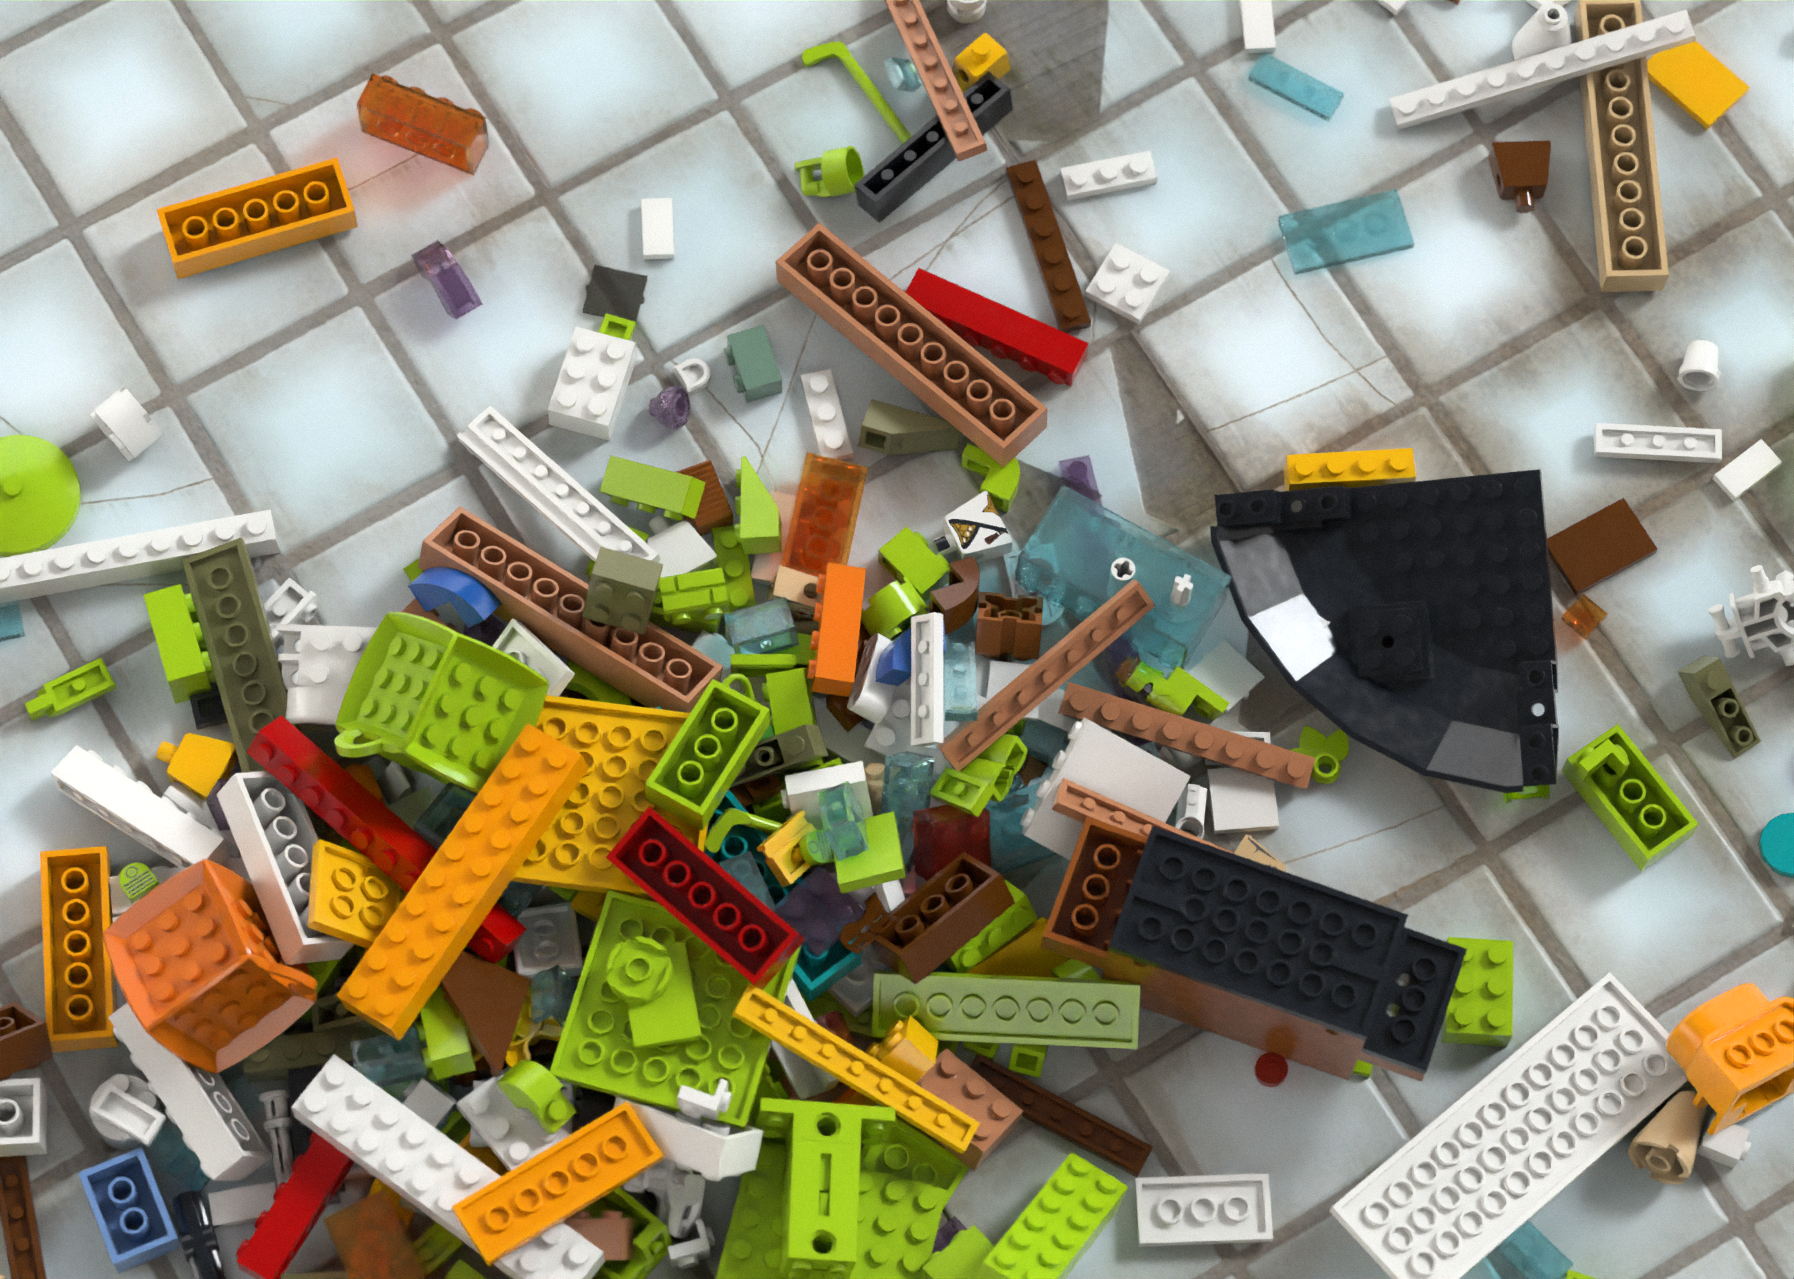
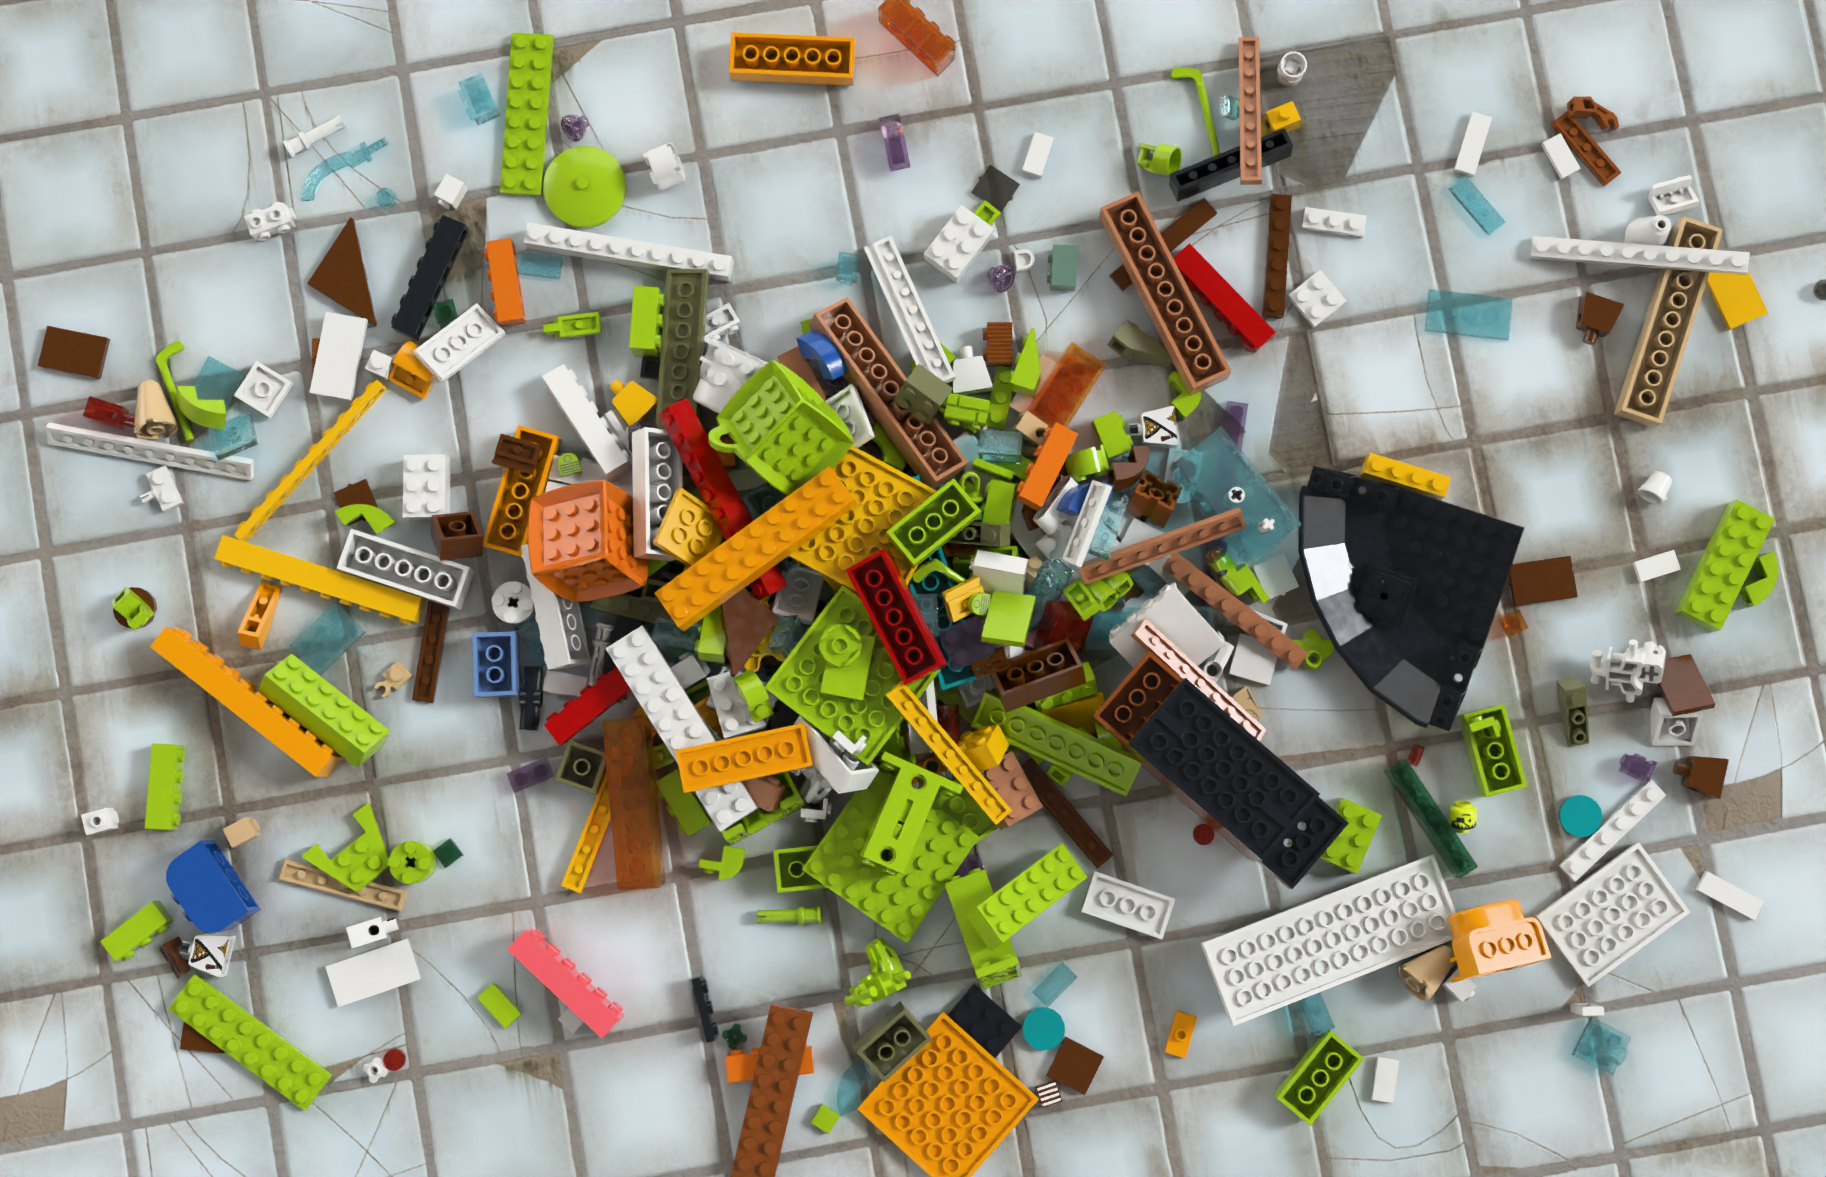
camera: 25 degrees right, 15 degrees up
(54, 890) = (517, 454): none -> reddish brown plate
(128, 1114) = (513, 609): white tile -> none
(444, 471) = (847, 268): none -> clear light blue brick
(652, 488) = (969, 328): lime brick -> none
(826, 415) = (1095, 317): white plate -> none
(843, 821) = (1000, 595): clear light blue brick -> none
(896, 266) = (1174, 236): none -> reddish brown tile
(1525, 844) = (1415, 754): none -> clear red tile
(1583, 922) = (1430, 818): none -> clear green brick
(1628, 905) = (1462, 816): none -> neon yellow head
(1658, 443) = (1607, 528): white plate -> none

